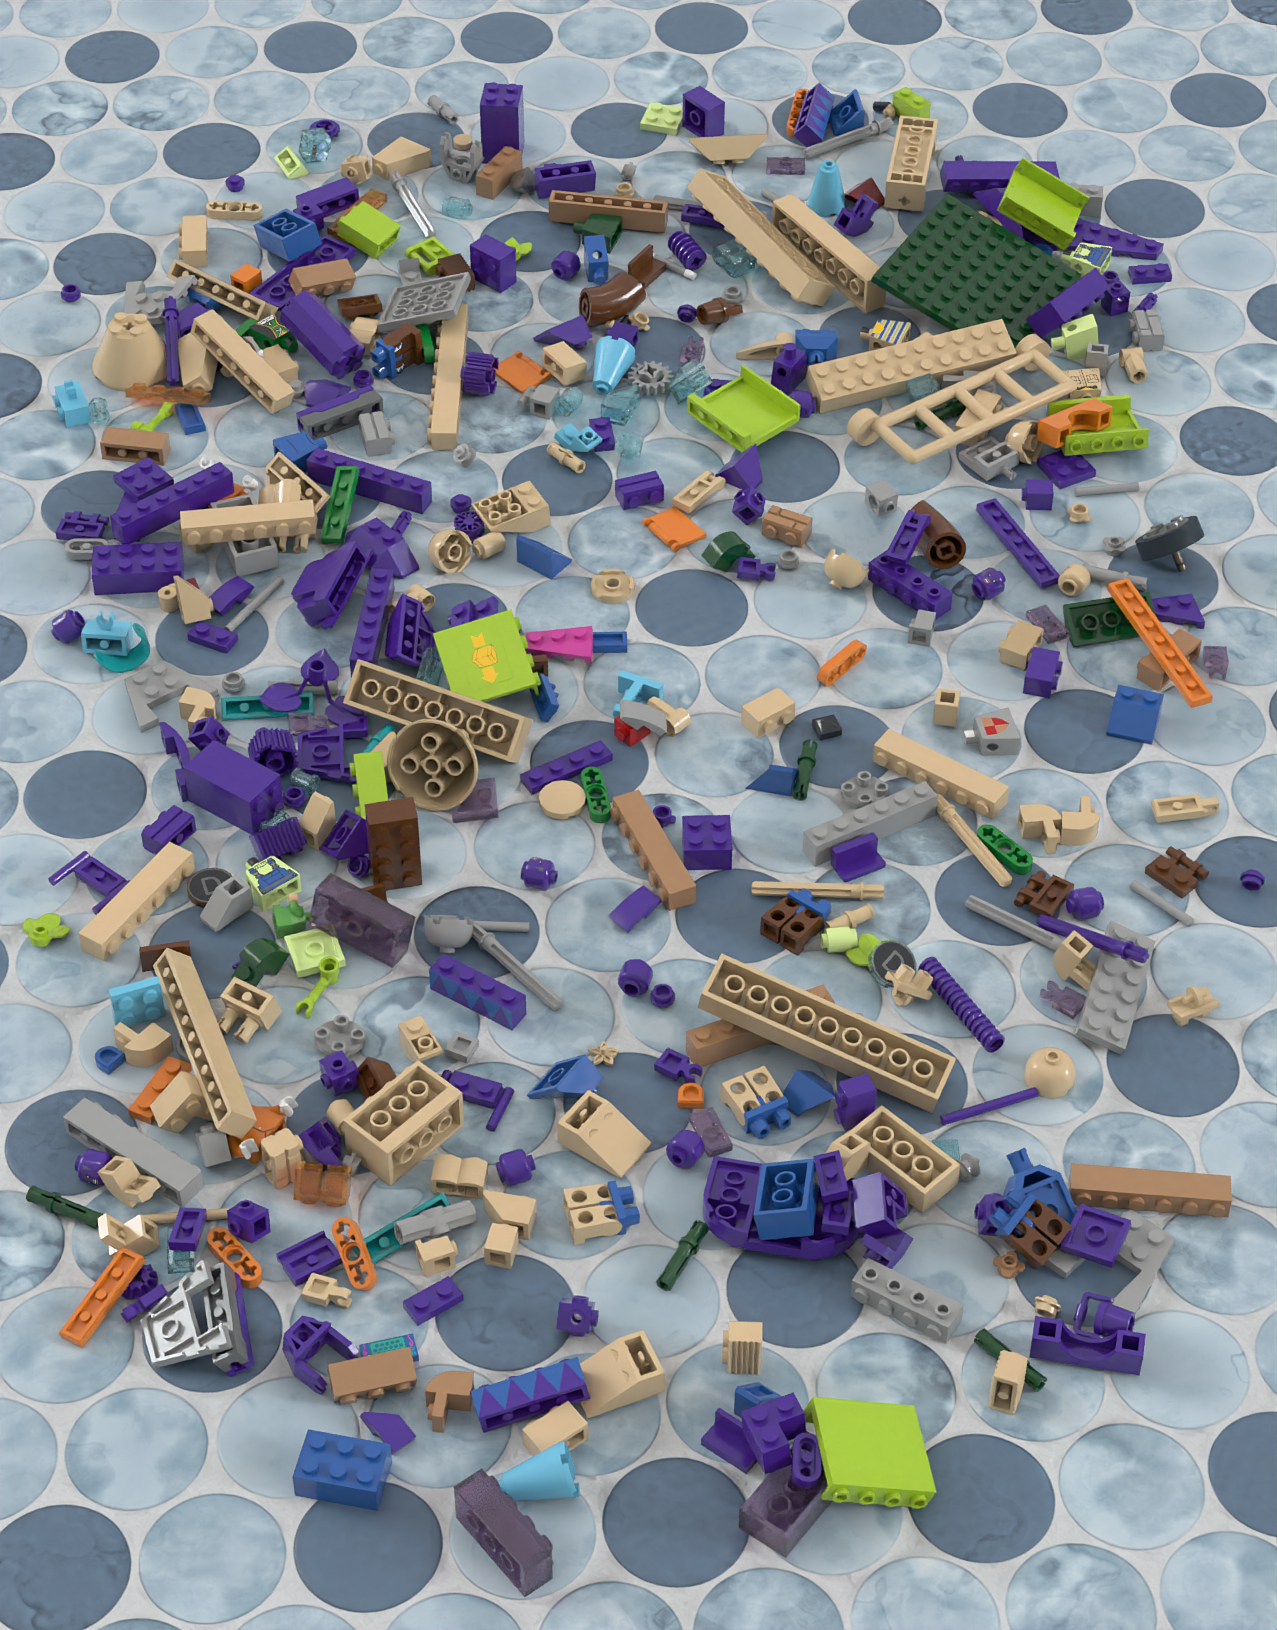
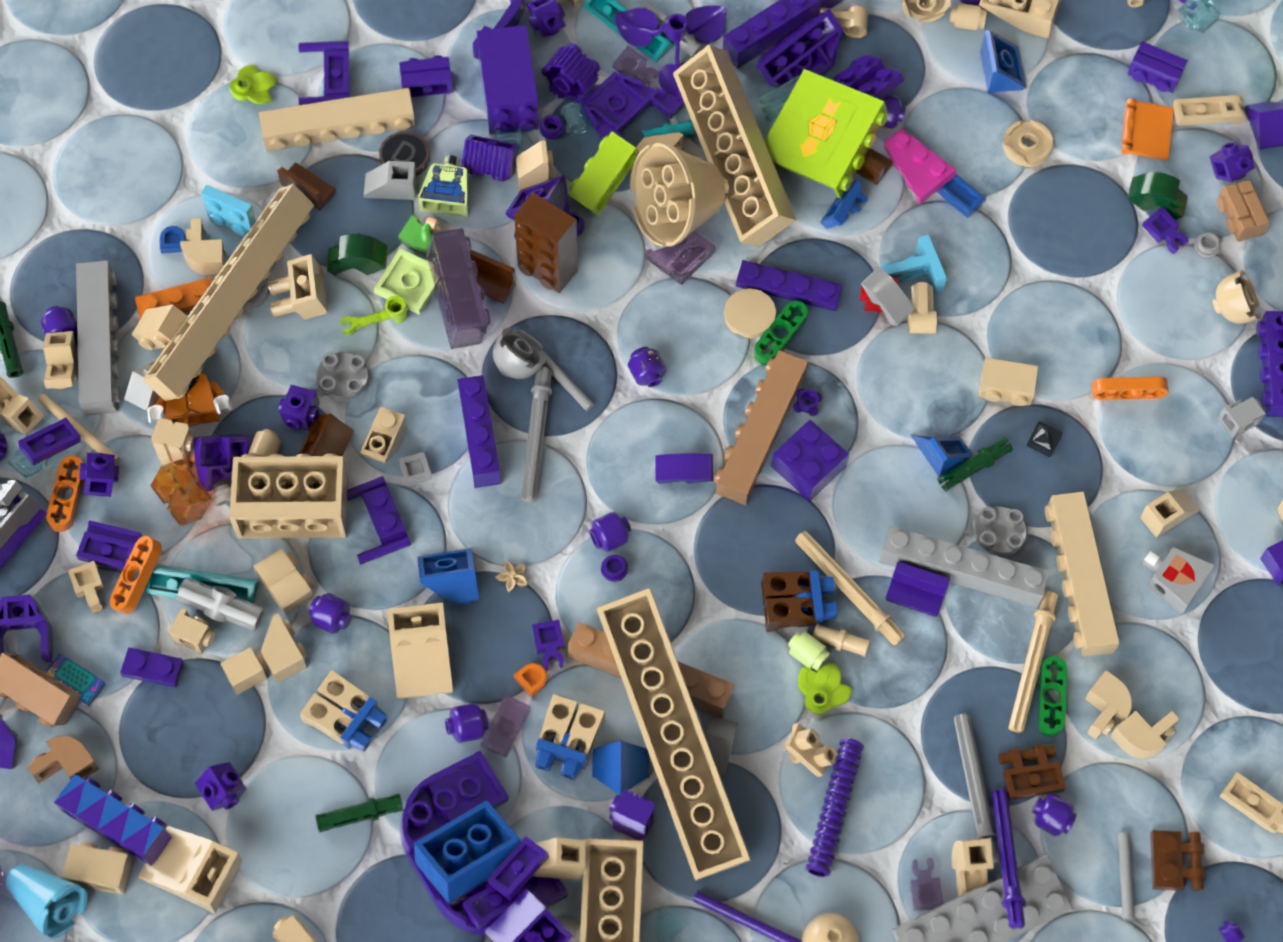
camera: 45 degrees right, 20 degrees up
(888, 957) = (823, 712): tile -> none

